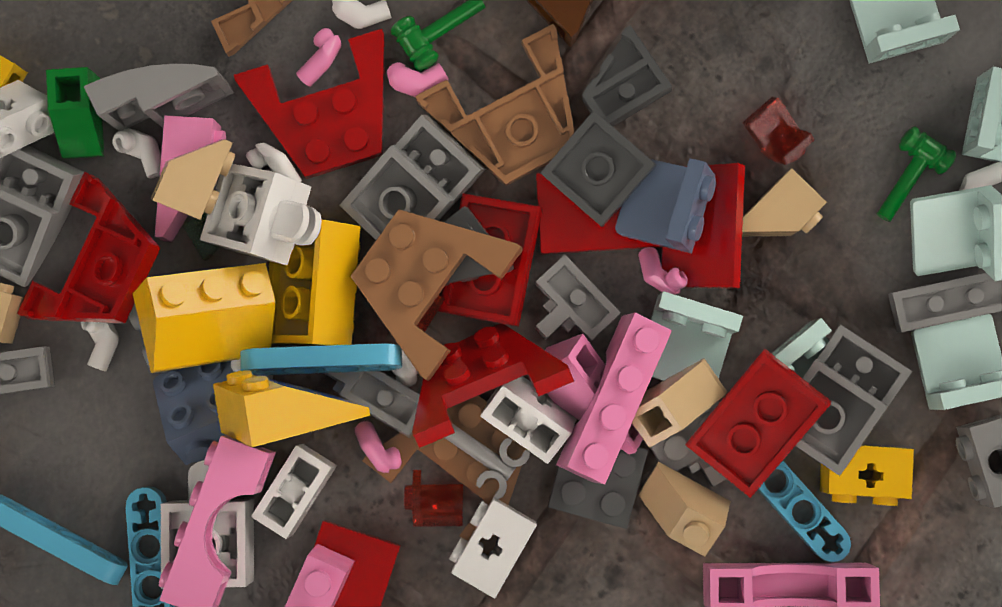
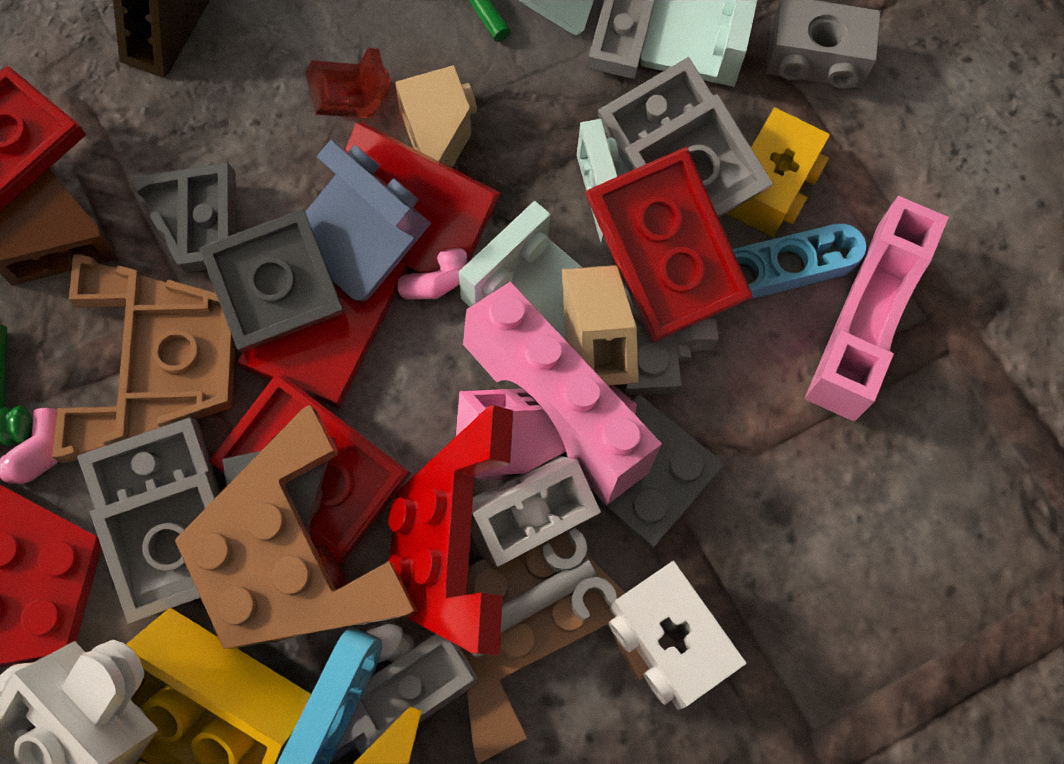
camera: 70 degrees left, 15 degrees down
(372, 446) = (472, 735): bright pink arm -> none
(434, 503) = (582, 690): clear red bracket -> none
(573, 301) = (414, 394): light grey hinge -> none
(685, 508) = (731, 381): tan slope -> none

